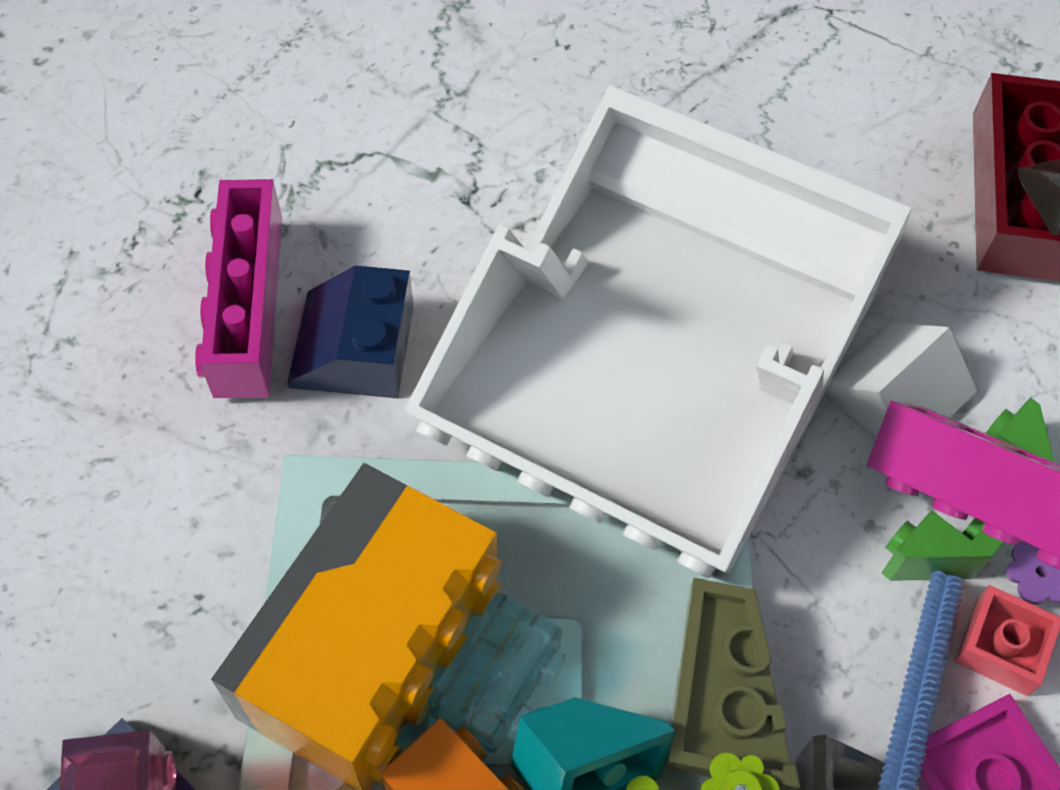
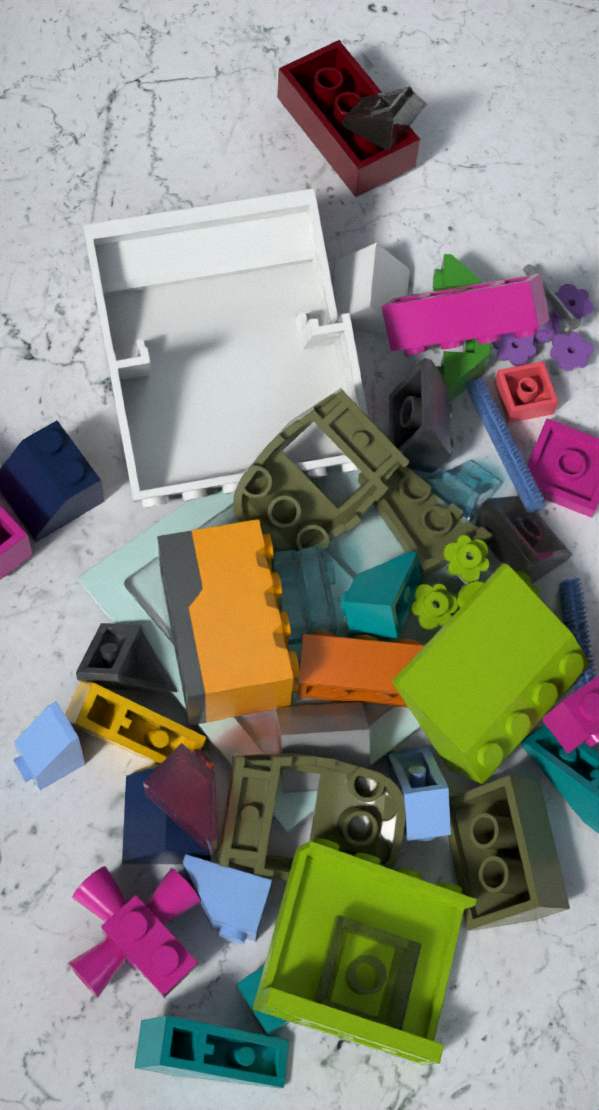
camera: 45 degrees left, 5 degrees up
(65, 616) = (48, 748): none -> light blue slope
(172, 671) = (127, 724): none -> yellow slope
(226, 574) = (123, 661): none -> flat silver slope
(568, 547) = (290, 503): none -> olive slope
(821, 697) = (464, 486): none -> clear light blue slope
(833, 573) = (422, 418): none -> flat silver slope

